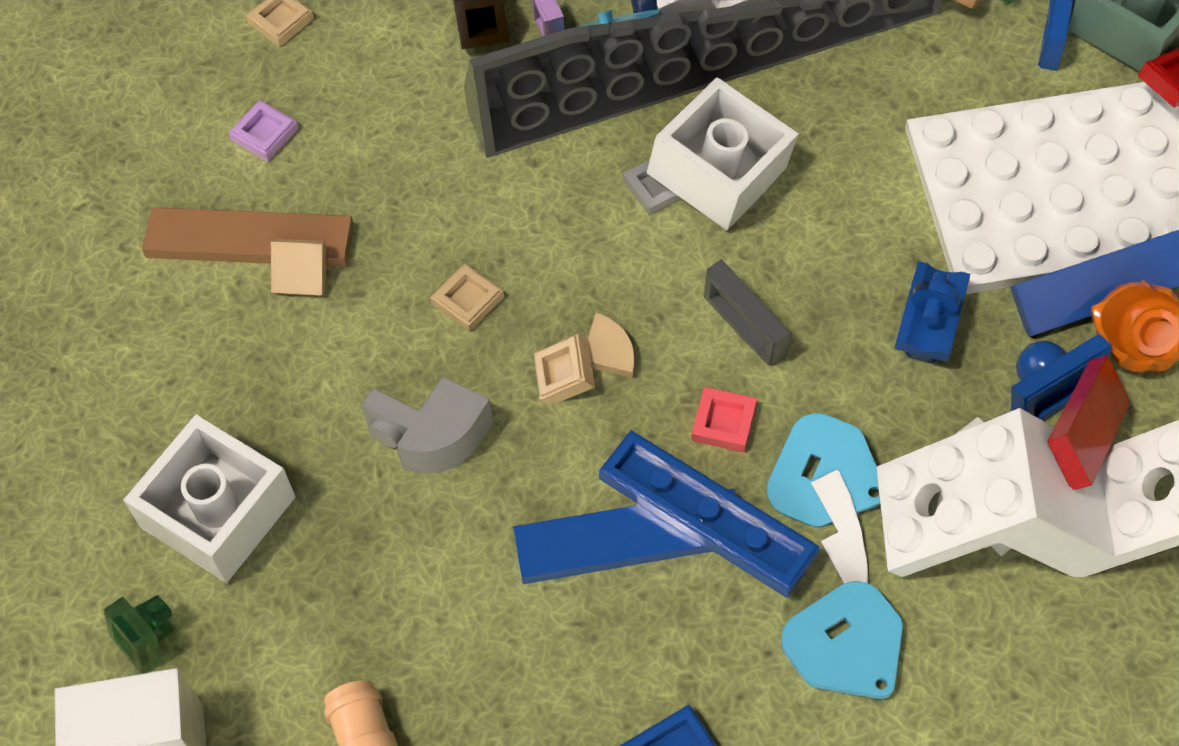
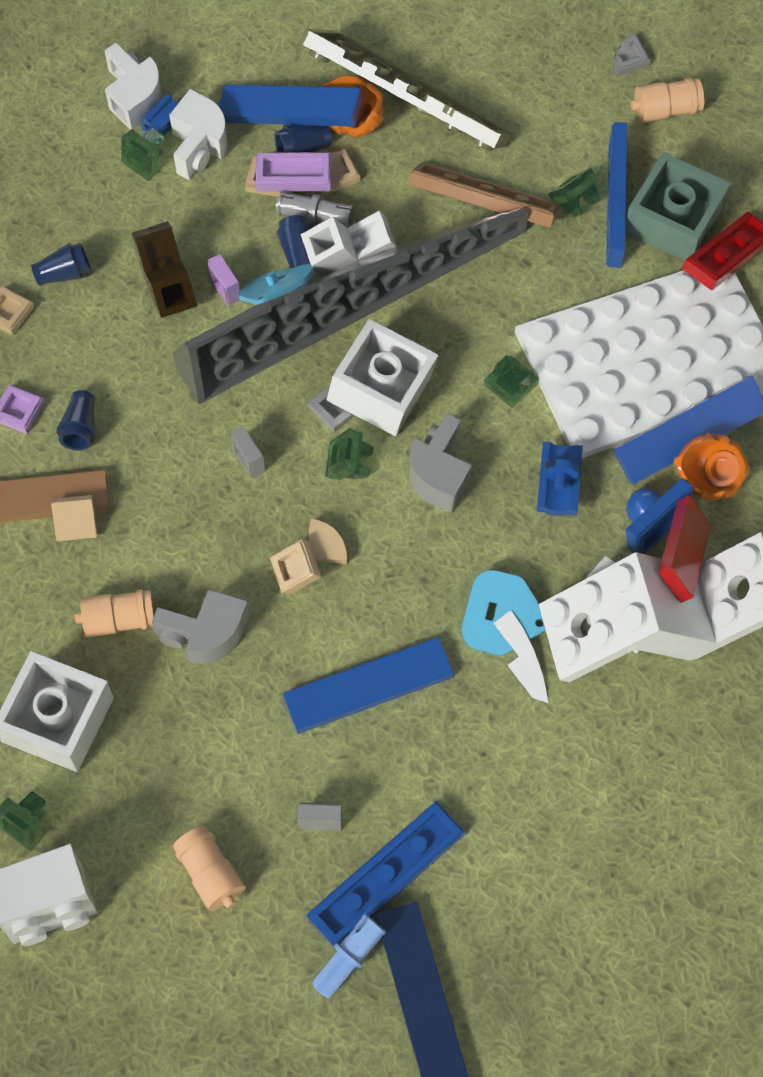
camera: 15 degrees left, 5 degrees up
(320, 389) = (114, 613): none -> light nougat piece
(331, 156) = (77, 425): none -> dark blue cone
(467, 297) = (209, 521): tan tile -> none
(526, 696) = (319, 816): none -> light grey tile
(532, 220) = (247, 452): none -> light grey tile
(655, 244) = (345, 456): none -> clear green tile
(709, 513) = (423, 659): blue tile -> none
(724, 419) = (421, 585): coral tile -> none
(746, 313) = (423, 501): dark grey tile -> none
(771, 268) = (433, 471): none -> light grey brick
(856, 656) = (547, 745): medium azure piece -> none
(889, 184) = (511, 381): none -> clear green tile

